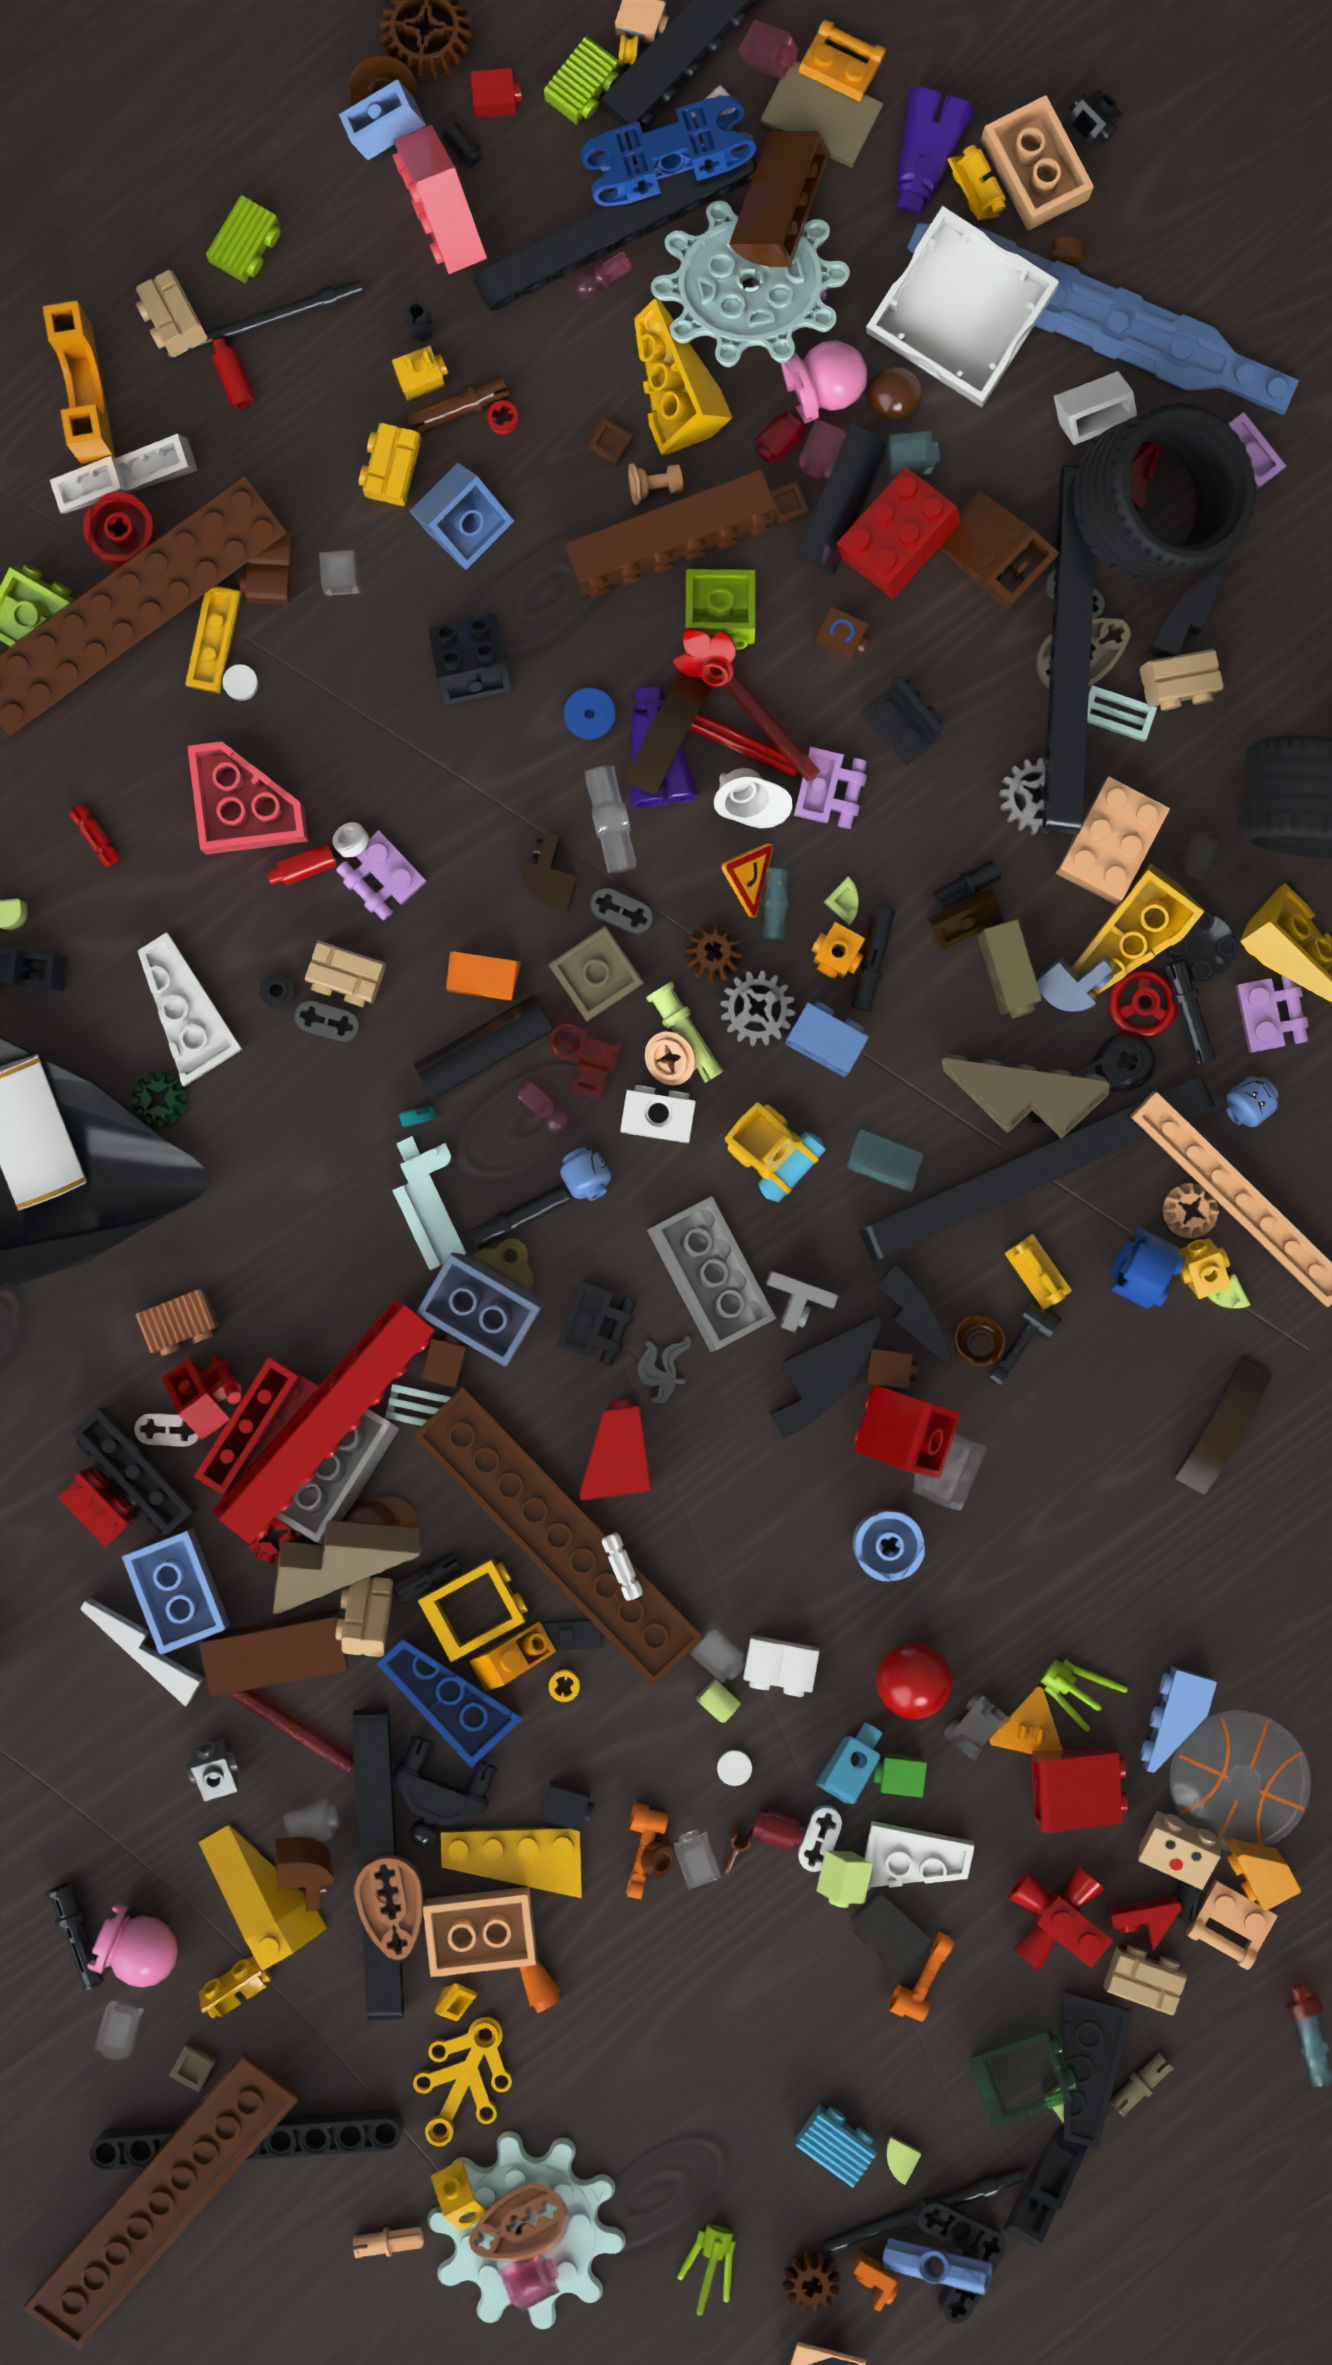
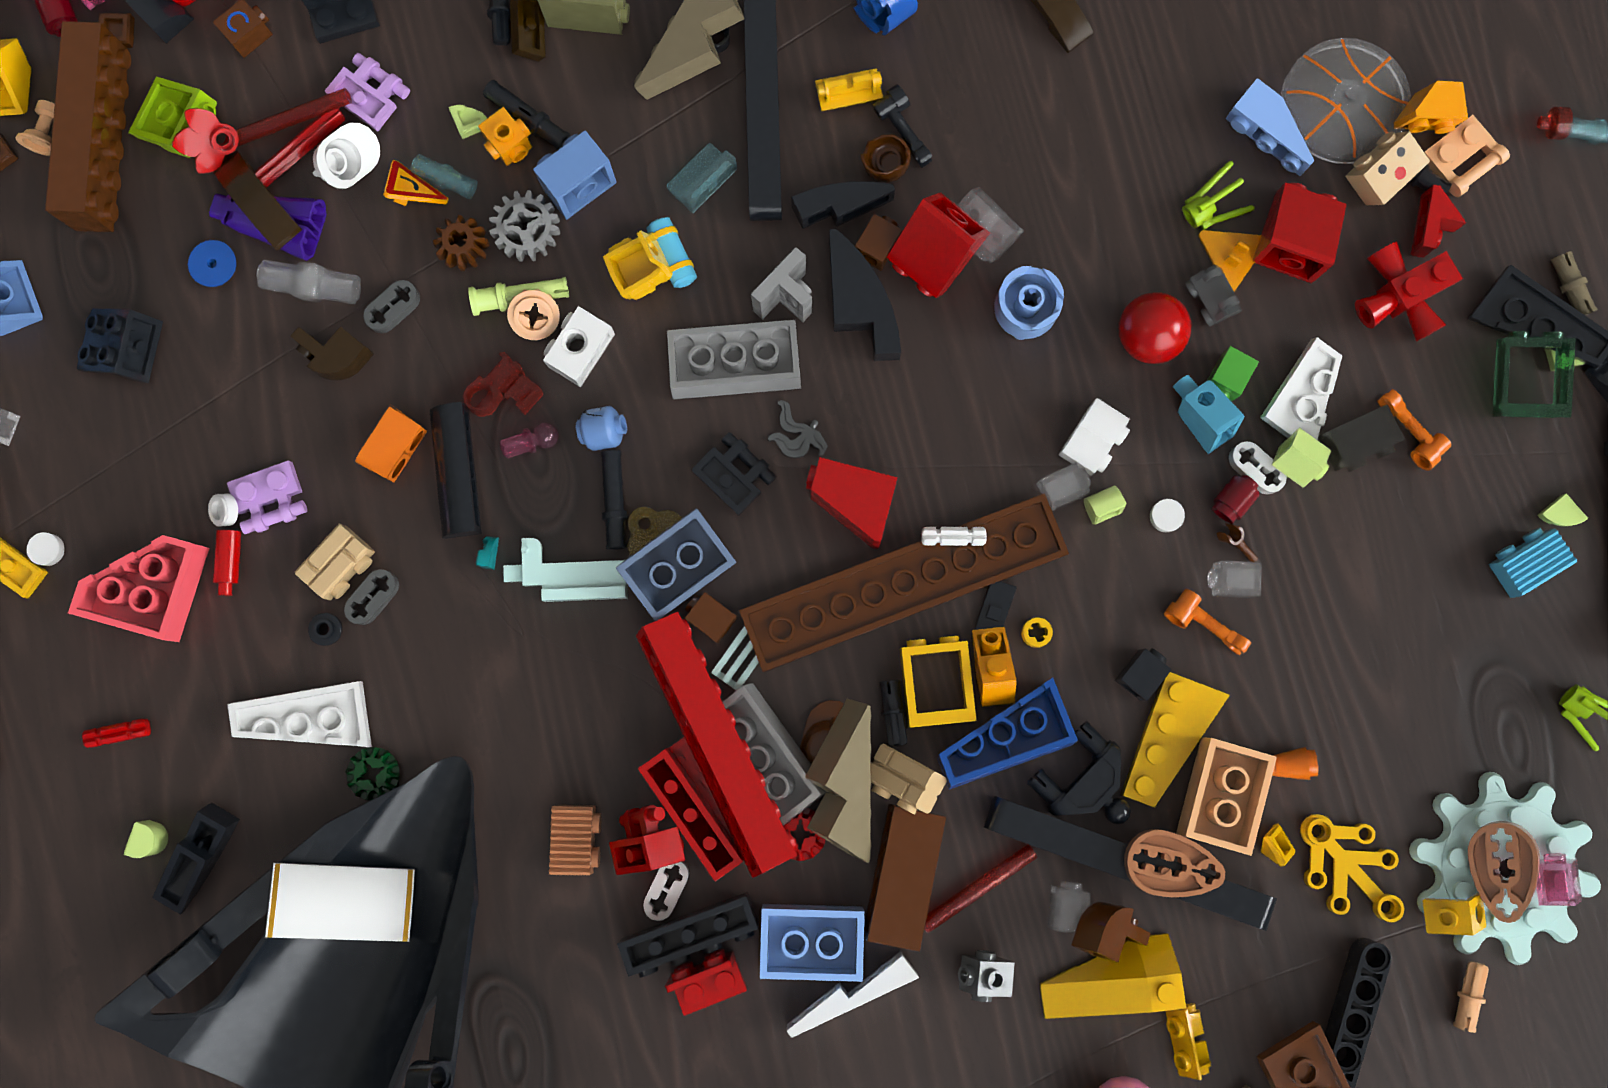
camera: 65 degrees left, 5 degrees down
(596, 973) = (434, 349): dark tan plate -> none
(657, 1859) = (1221, 613): reddish brown tile -> none
(1145, 1979) = (1487, 243): tan brick -> none

